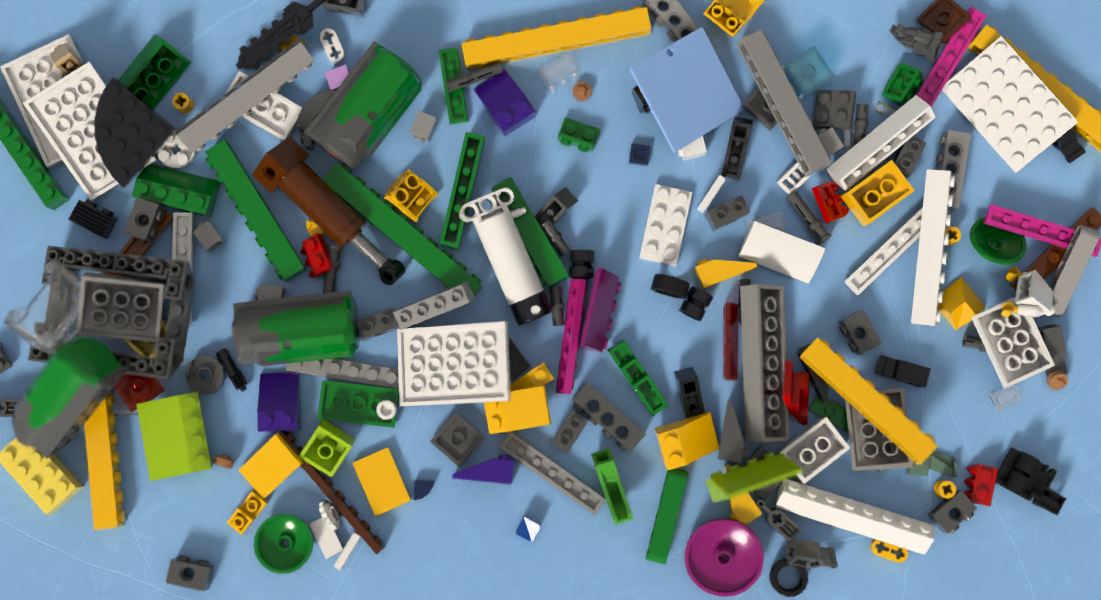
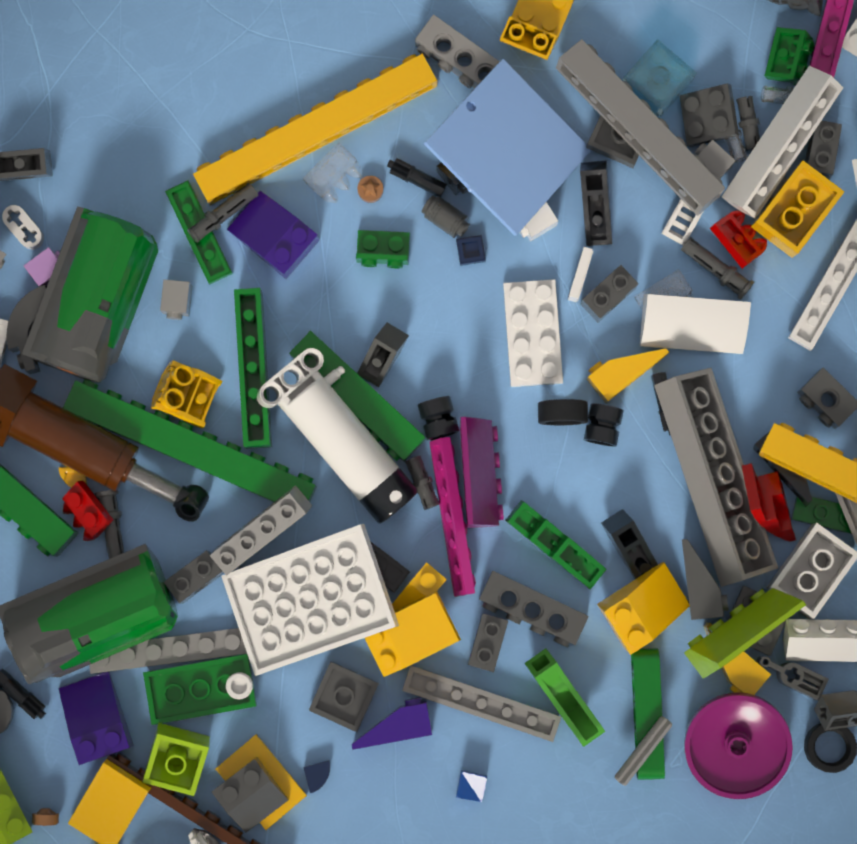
camera: 10 degrees left, 0 degrees up
(269, 292) = (38, 578): light grey brick -> none
(371, 488) = (250, 795): none -> dark grey slope
(555, 237) = (392, 393): dark grey pin -> none
(613, 89) = (417, 177): none -> black piece
(629, 125) = (445, 216): none -> dark grey head
(656, 540) = (643, 750): none -> light grey axle
(730, 342) = (663, 461): clear red slope -> none

